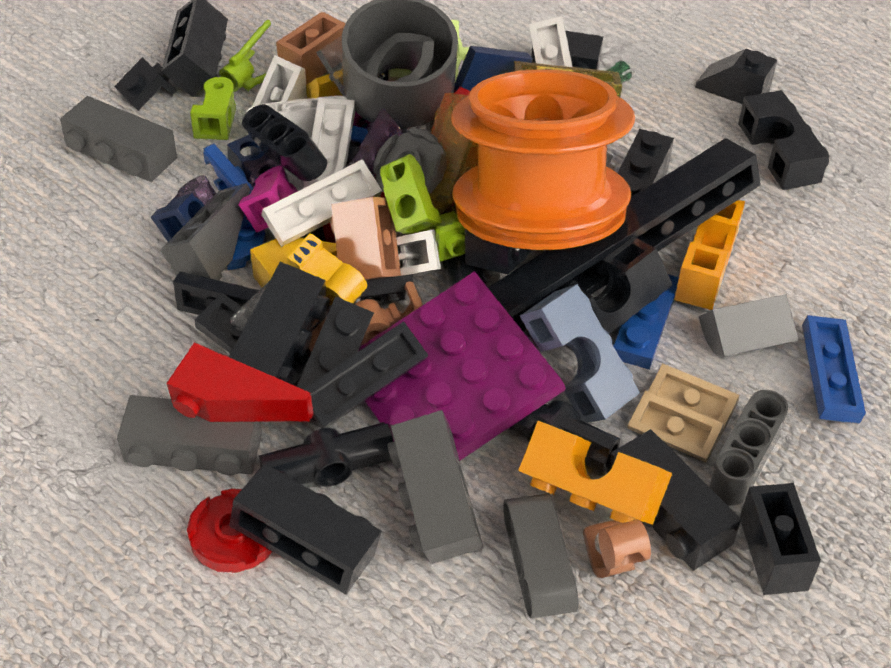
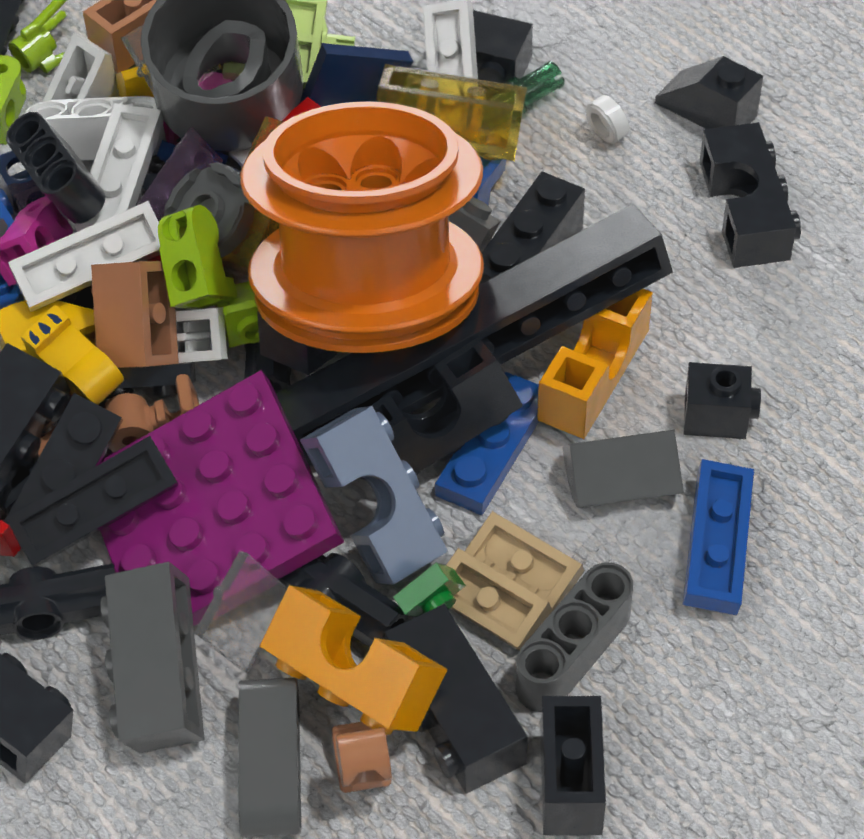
camera: 10 degrees right, 5 degrees up
(499, 446) = (241, 611): none -> clear piece
(635, 421) = (430, 590): none -> green plate
(669, 97) = (607, 119): none -> white tile
(805, 275) = (719, 400): none -> black brick

